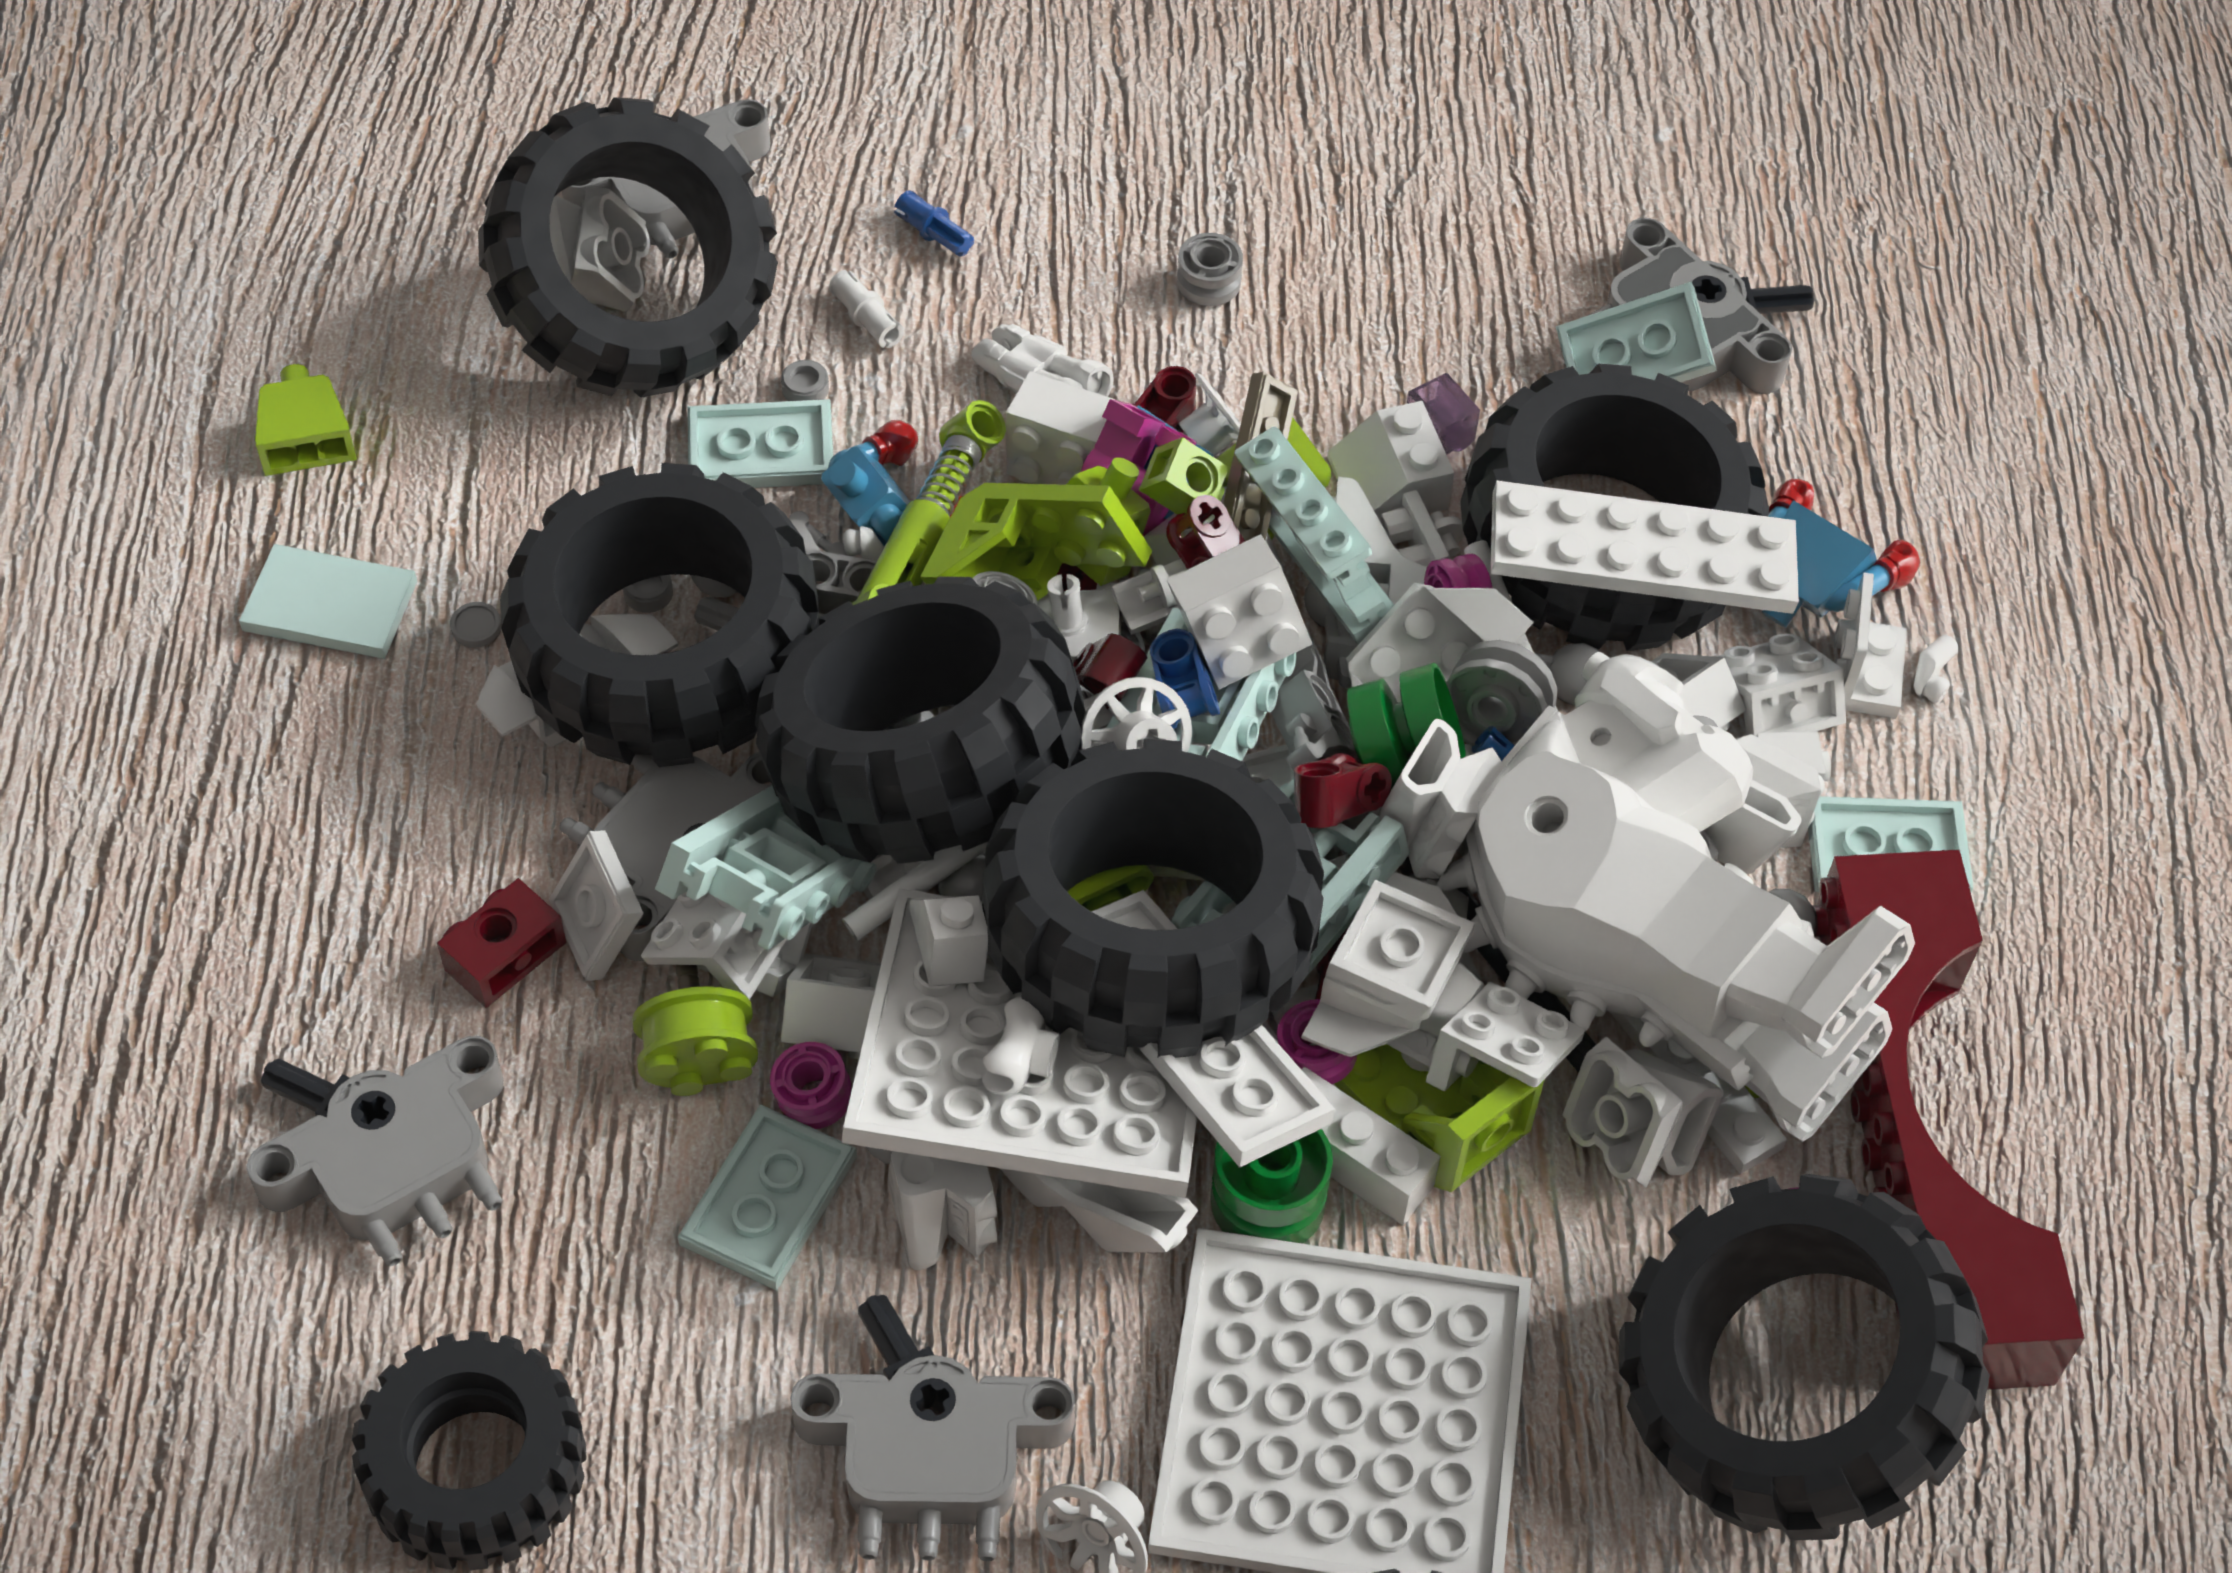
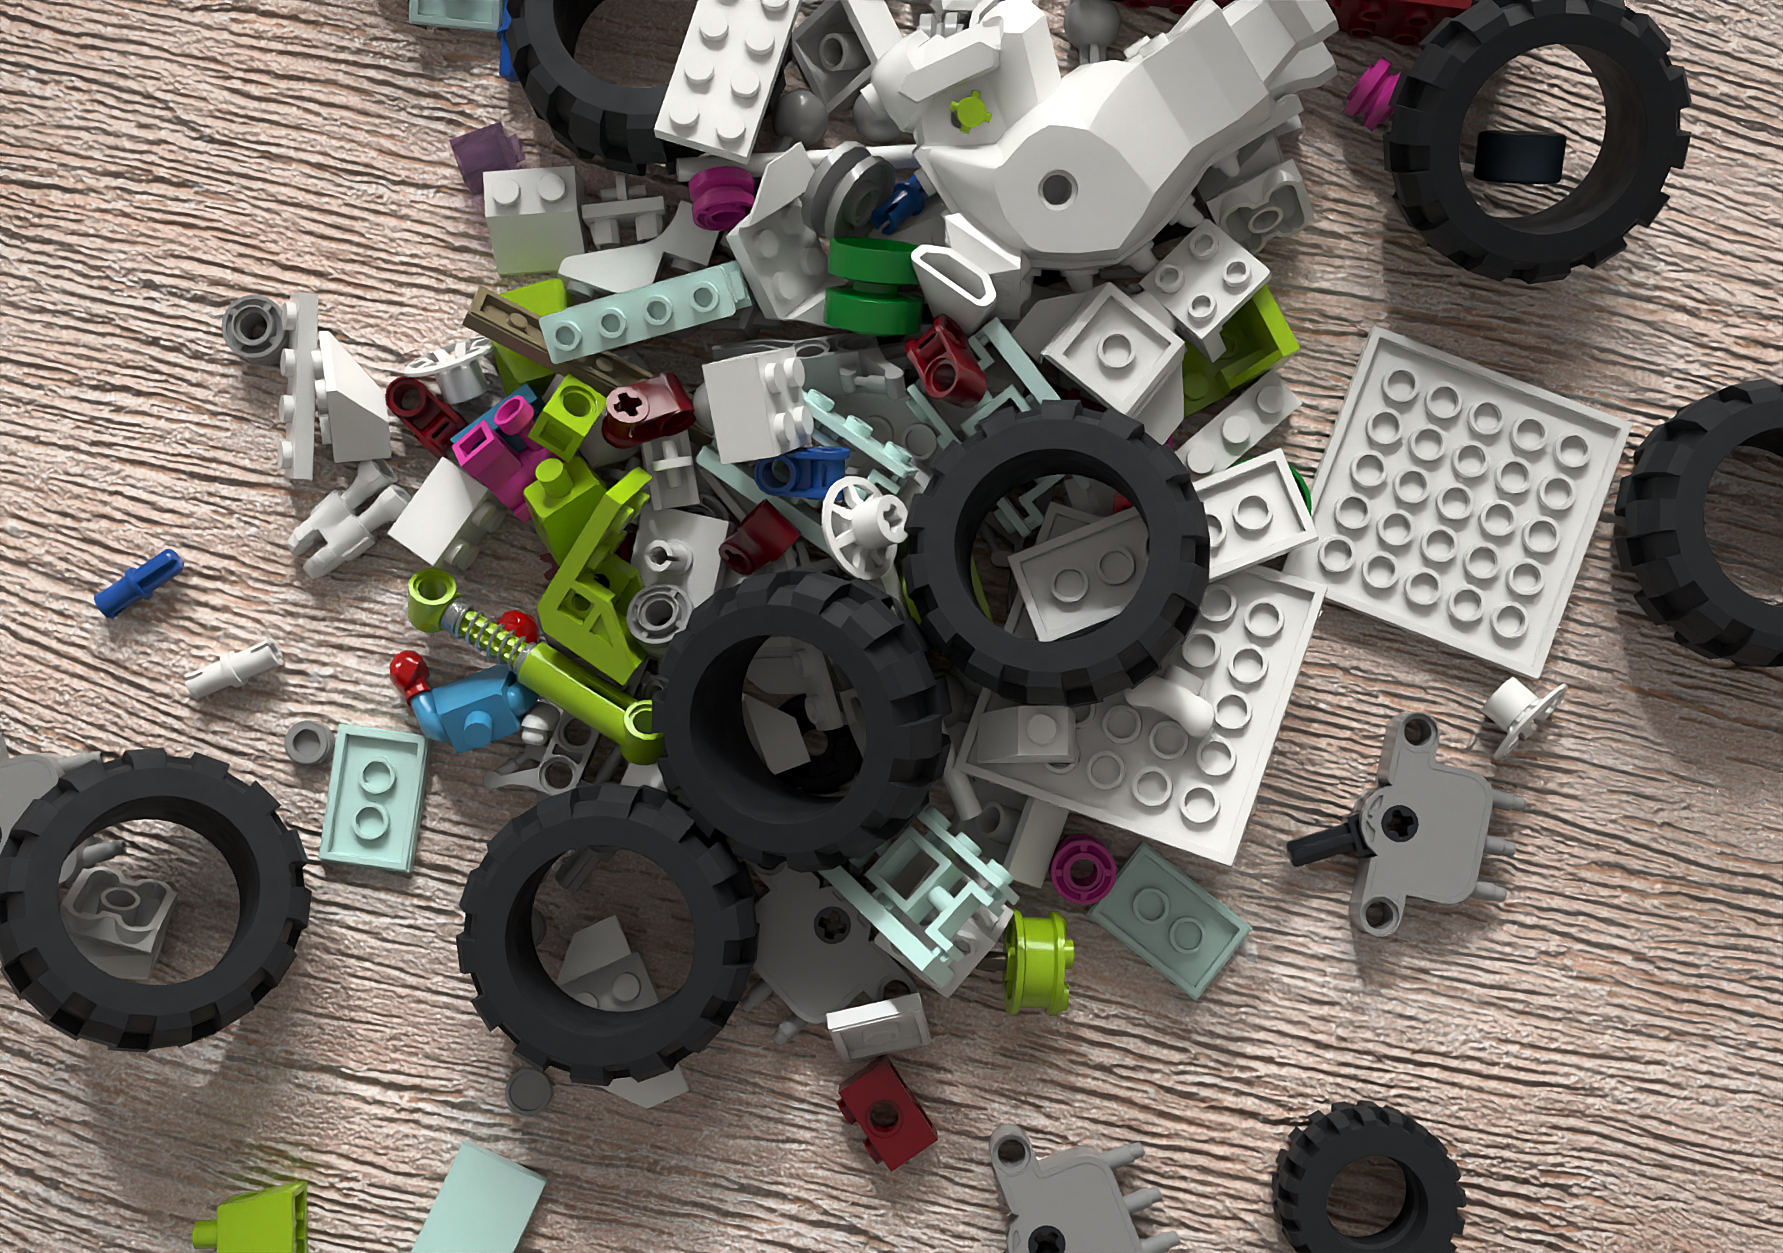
camera: 70 degrees left, 30 degrees up
(1151, 333) = (354, 405): none -> white slope
(1180, 298) = (298, 406): none -> white plate
(1607, 736) = (970, 111): none -> lime piece
(1773, 1356) = (1519, 157): none -> black wheel

